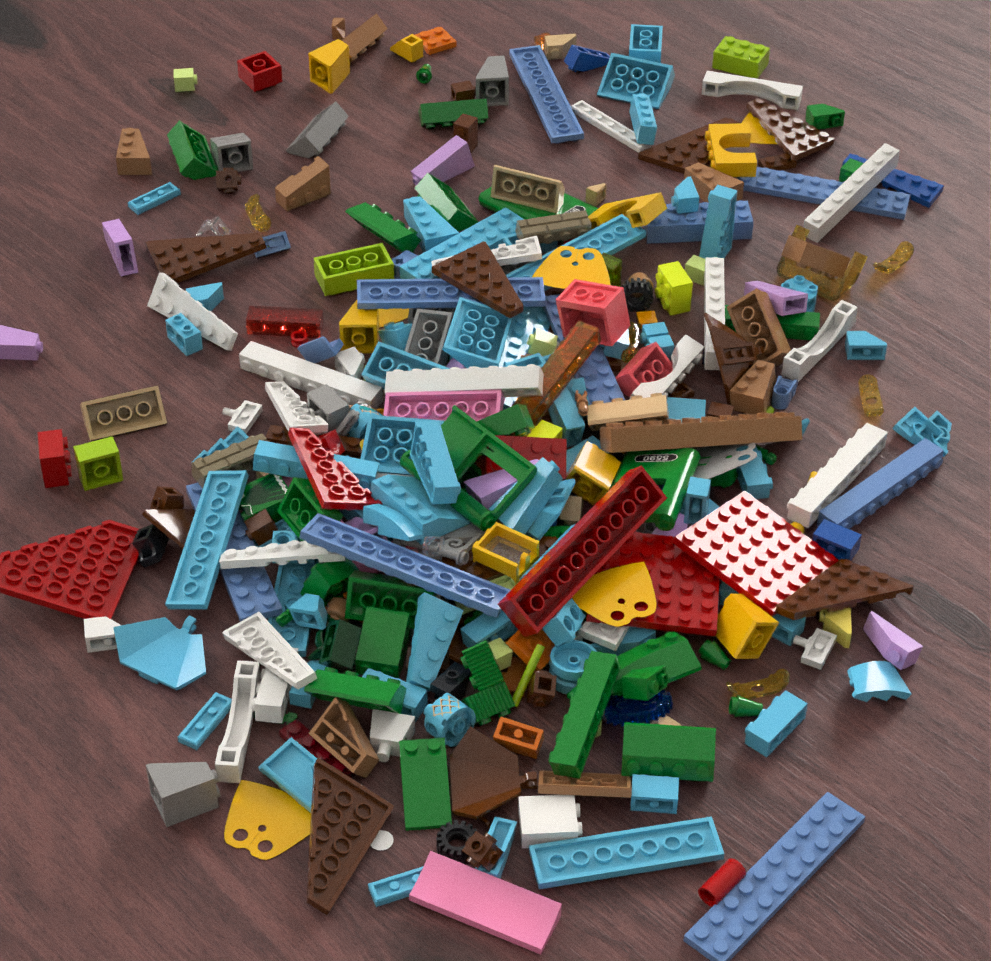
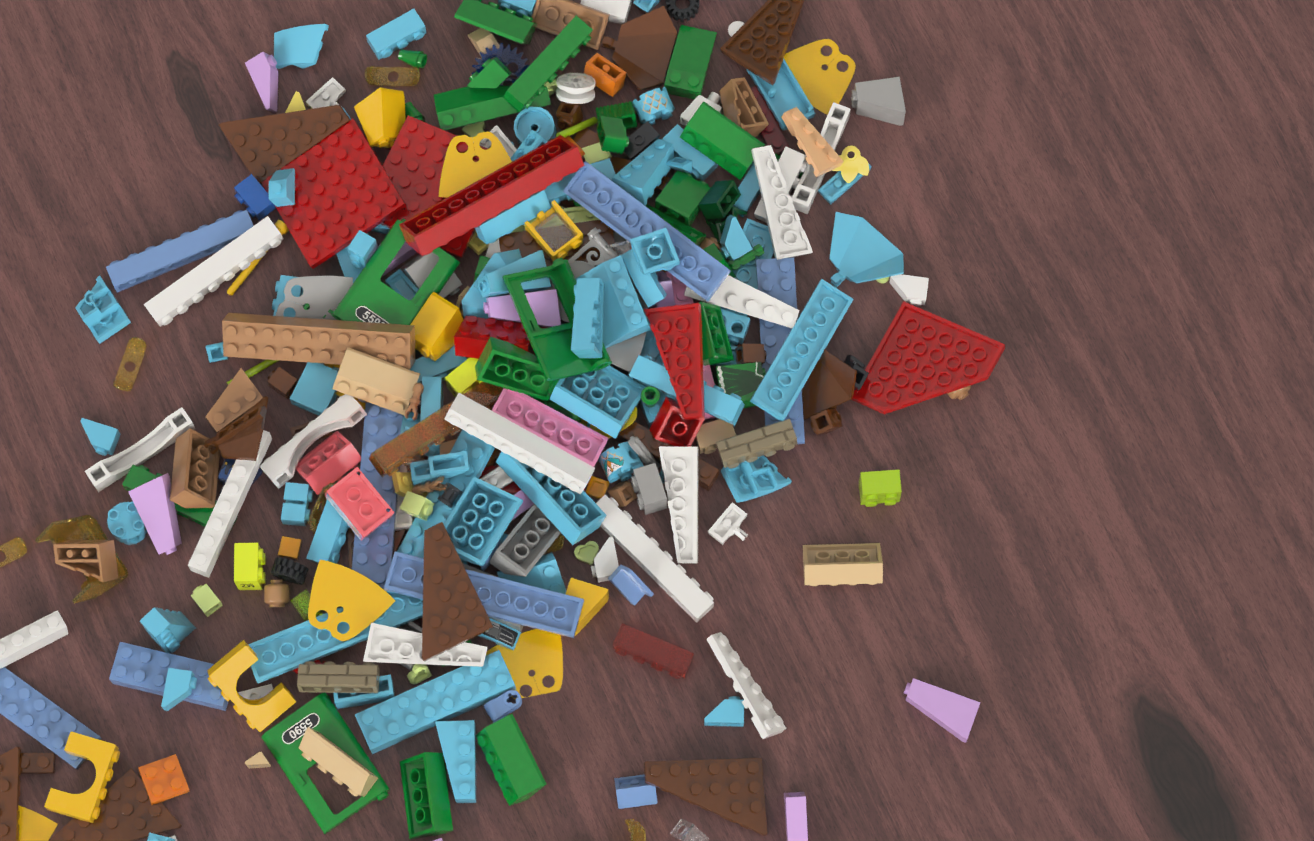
camera: 160 degrees left, 30 degrees up
(54, 458) = (920, 506): red brick -> none
(184, 334) = (759, 660): medium azure brick -> none
(201, 726) = (852, 166): none -> light yellow plate
(248, 718) = (816, 148): none -> light nougat wing
(298, 338) = (647, 620): red bush -> none
(341, 270) = (561, 705): lime brick -> none
(351, 449) = (650, 392): none -> green cone
(384, 526) = (654, 252): none -> medium azure slope
(397, 666) = (680, 164): none -> medium azure slope
(514, 348) = (449, 495): none -> black bush
(536, 702) = (575, 88): none -> white wheel
(666, 171) = (163, 779): none -> orange plate
(707, 179) = (128, 732): medium nougat wedge -> none
(783, 392) = (205, 399): medium blue piece -> none
(811, 540) = (282, 187): none -> medium azure slope

